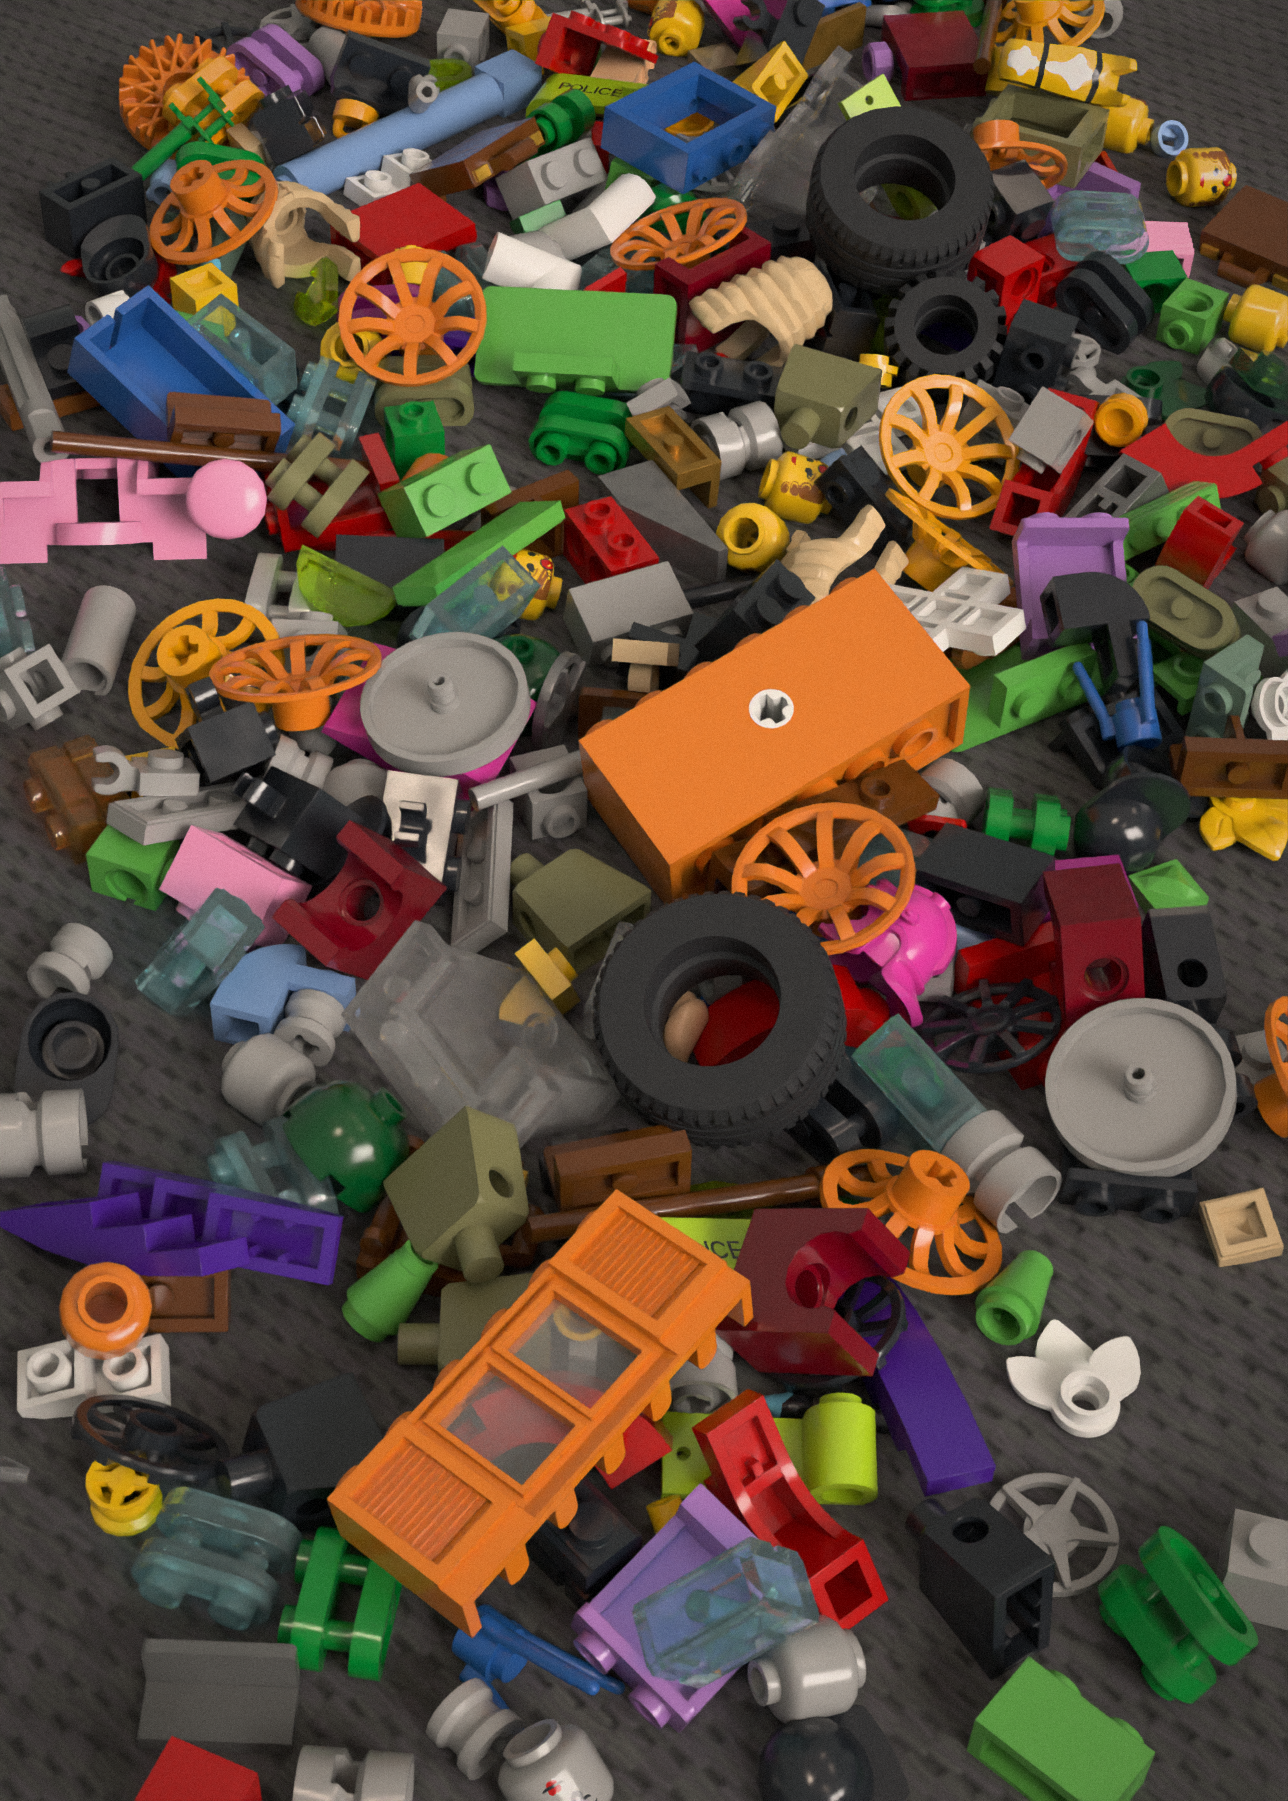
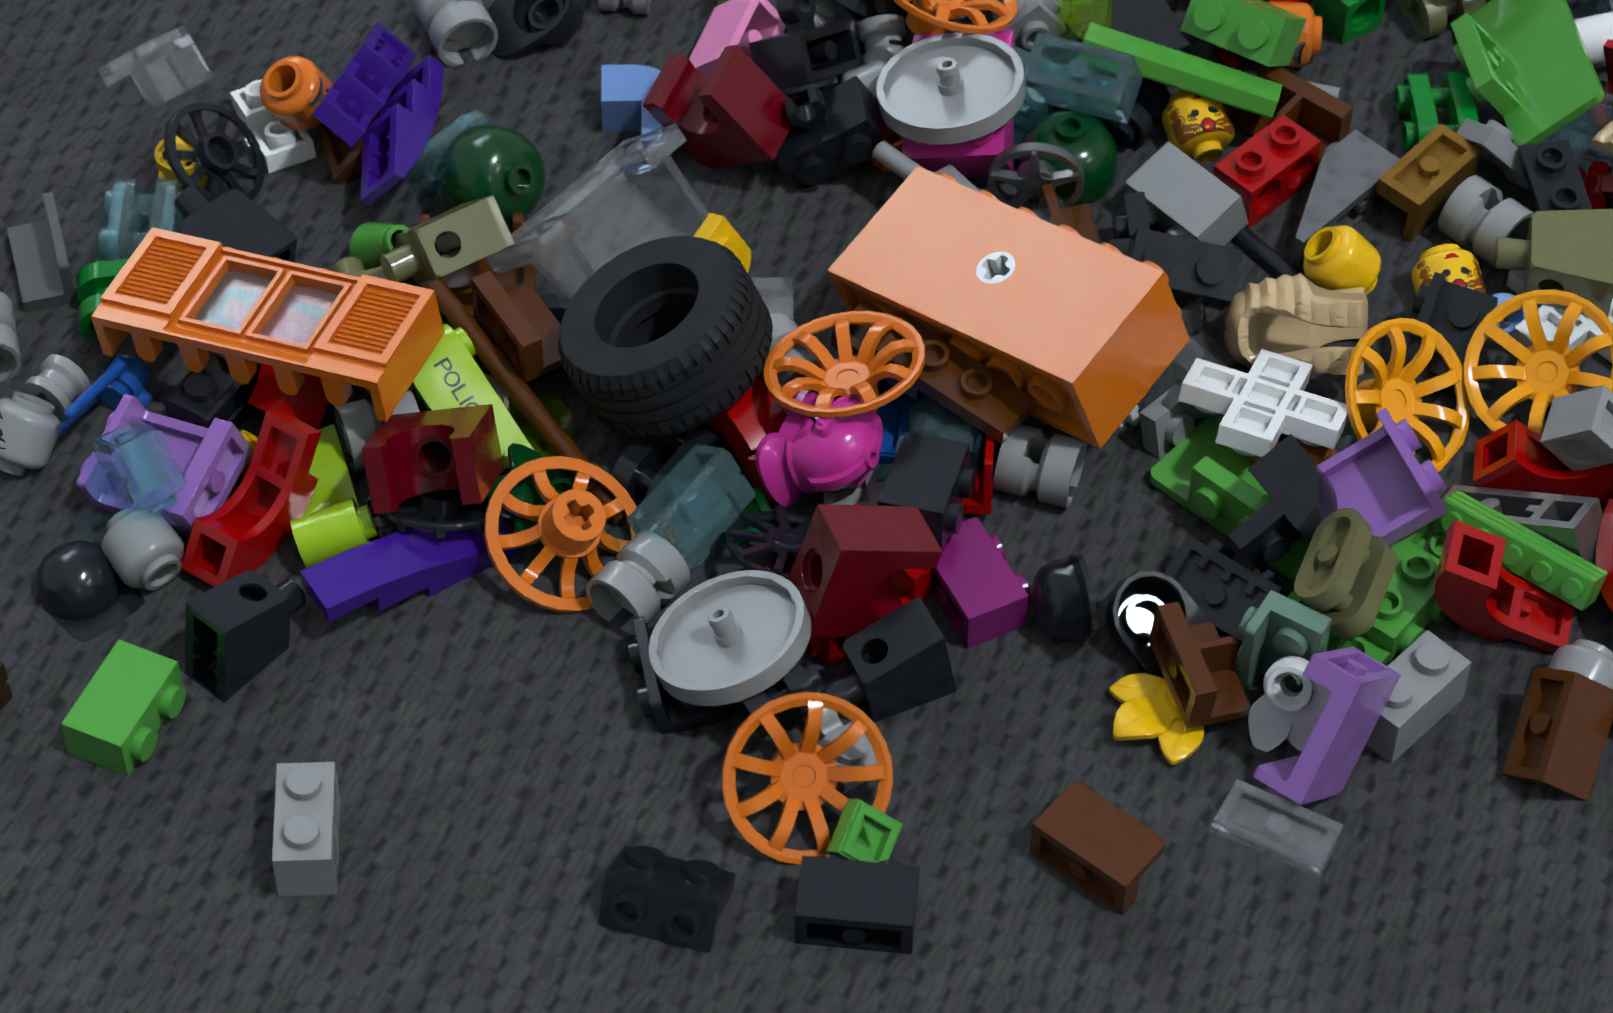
camera: 75 degrees right, 5 degrees up
(200, 953) = (643, 36): clear light blue brick -> none
(265, 1077) = (558, 126): light grey head -> none
(312, 1024) = (617, 129): light grey wheel -> none
(484, 885) = (824, 193): light grey tile -> none
(574, 904) = (804, 249): olive torso -> none
(645, 661) = (1095, 205): tan tile -> none
(1015, 1299) = (523, 622): bright green cone -> none
(1043, 826) = (1043, 520): green brick -> none
(1058, 1529) = (318, 686): light grey wheel -> none
(1071, 1371) = (471, 675): white plate -> none
(1135, 717) = (1208, 577): blue plant -> none
(1138, 1611) = (247, 752): green brick -> none
(1166, 887) = (1035, 663): bright green tile -> none
(1241, 1228) = (652, 763): tan tile -> none

